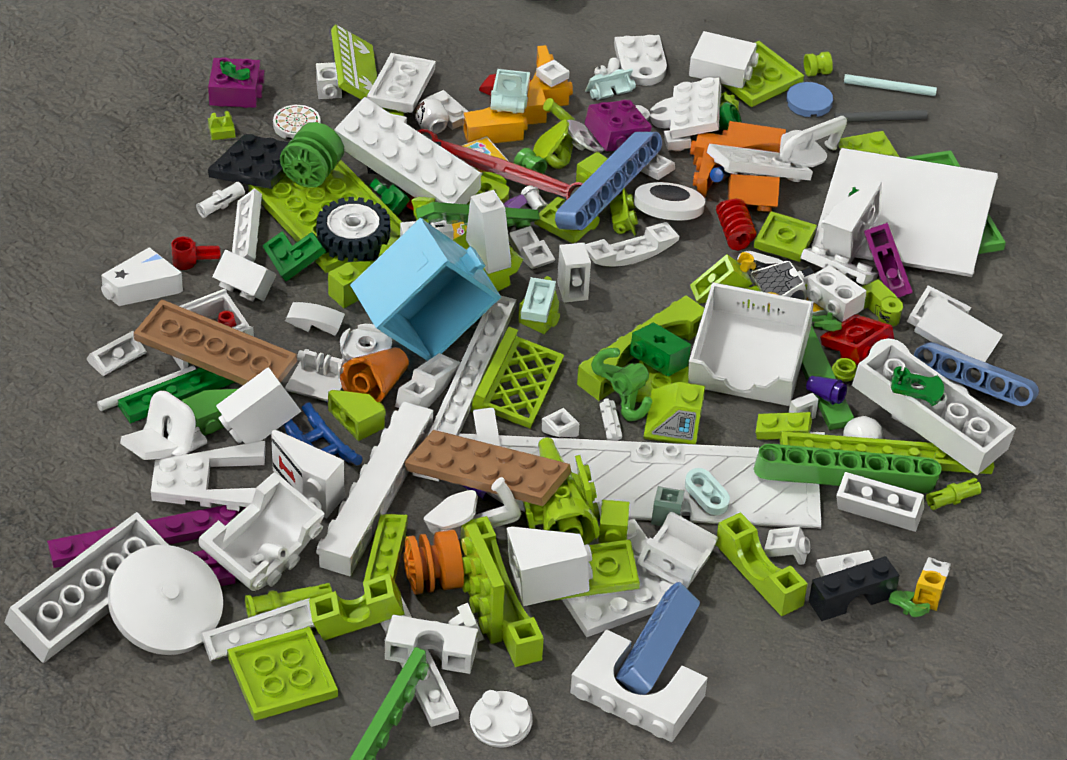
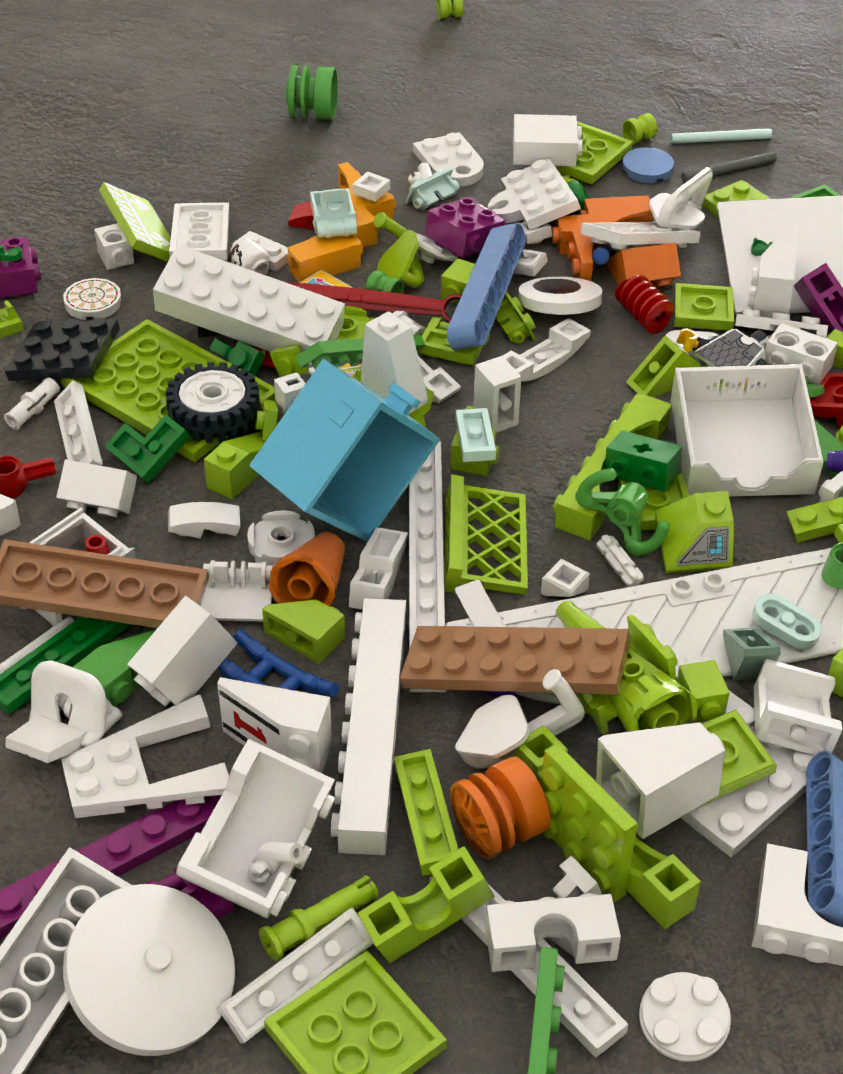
camera: 15 degrees left, 0 degrees up
(312, 154) = (132, 325): bright green wheel -> none

